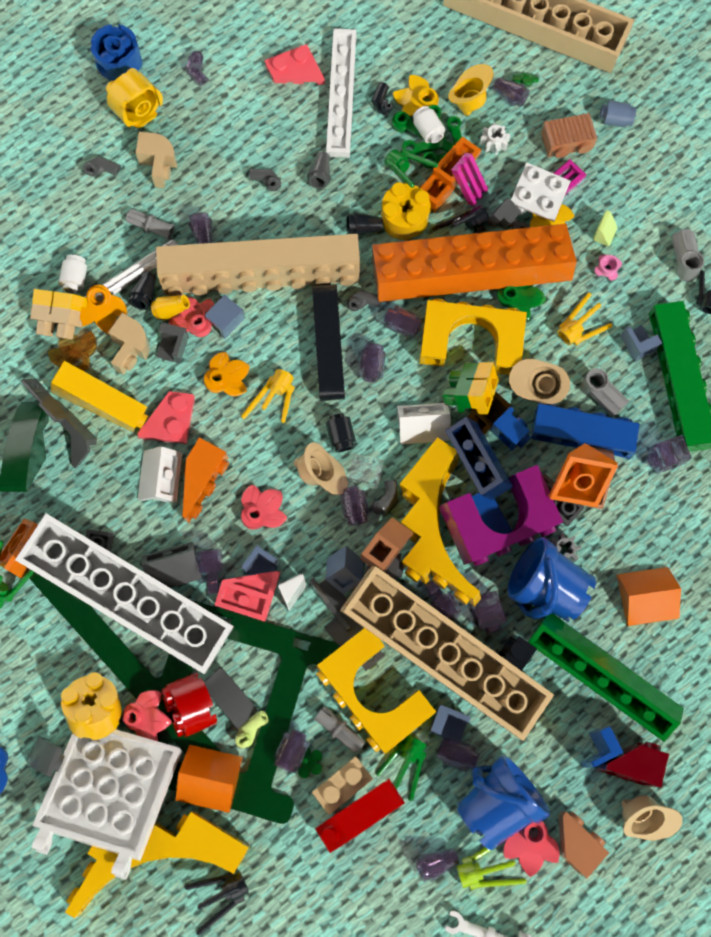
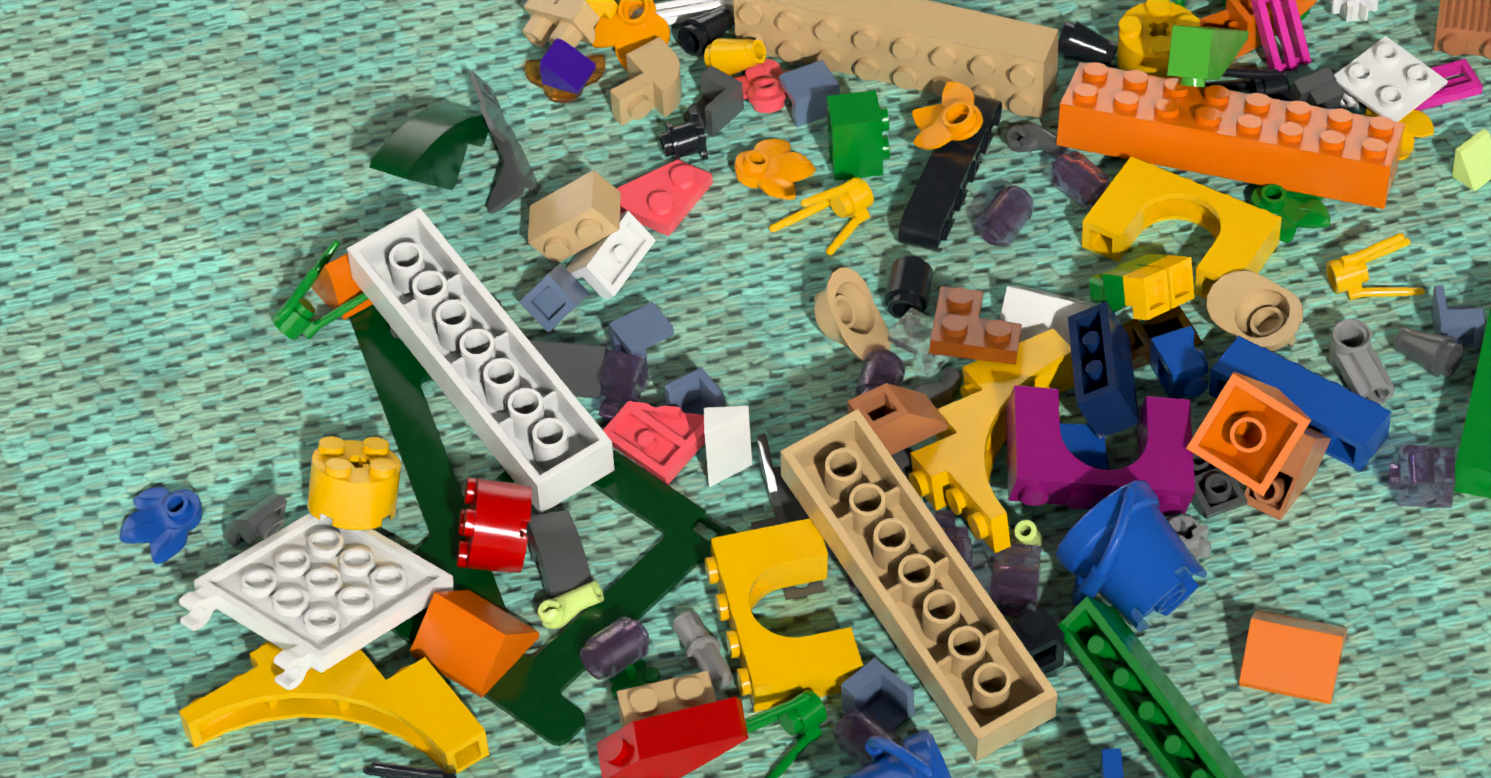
camera: 30 degrees right, 25 degrees down
(77, 353) = (565, 67): none -> dark purple slope
(98, 397) = (564, 123): yellow slope -> none
(132, 463) = (574, 217): none -> tan brick
(143, 519) = (554, 297): none -> sand blue panel
(148, 717) = (428, 526): coral plate -> none
(167, 376) = (684, 139): none -> black brick
(201, 470) = (669, 268): orange slope -> none
(207, 528) = (639, 331): none -> sand blue panel
(265, 505) = (737, 345): coral plate -> none
(268, 341) = (856, 135): none -> green brick
(312, 312) = (951, 120): none -> light orange plate
(393, 464) = (962, 333): none -> dark orange plate
(443, 217) = (1203, 52): none -> bright green slope
(482, 583) = (1026, 534): none -> yellowish green arm
(608, 260) = (1456, 212): bright pink plate -> none
(635, 367) = (1432, 351): none -> dark grey cone

